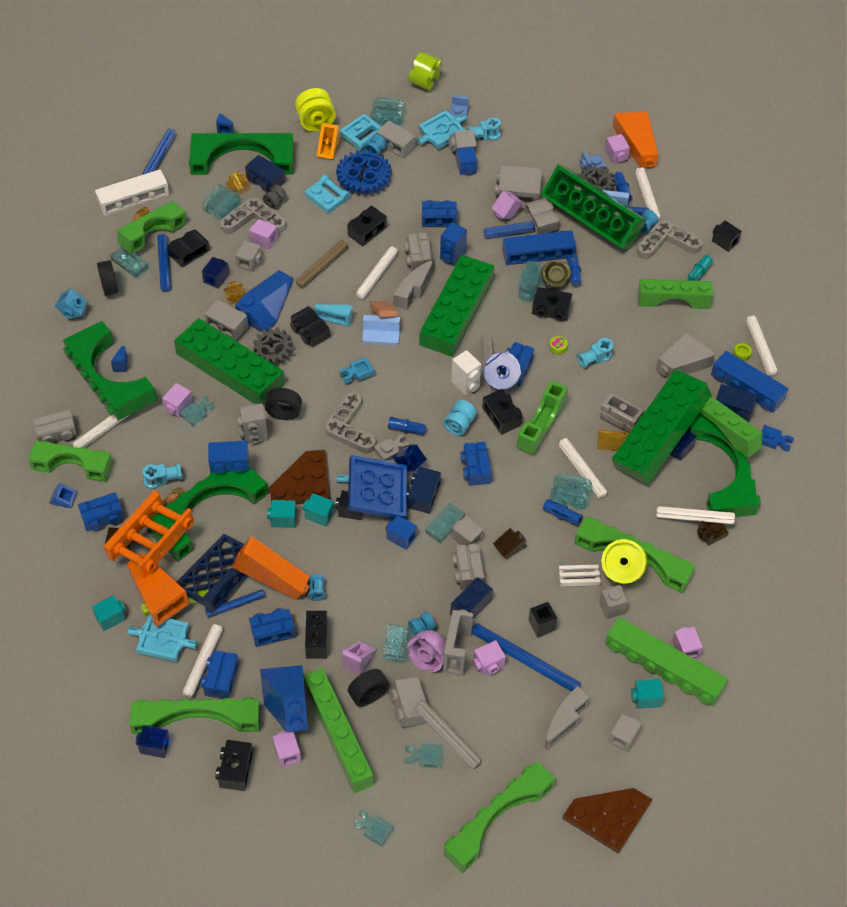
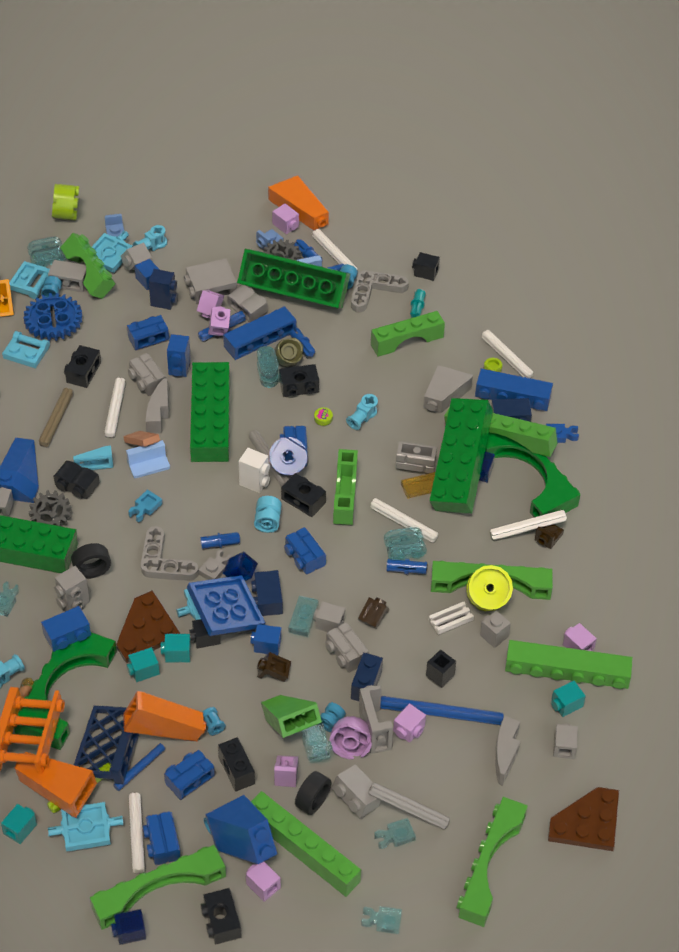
camera: 25 degrees left, 5 degrees down
(383, 608) = (290, 714): none -> bright green slope
(395, 559) = (274, 666): none -> dark brown bracket
(418, 150) = (97, 279): none -> bright green arch
(470, 178) = (162, 289): none -> dark blue brick
(505, 224) = (219, 321): none -> lavender brick

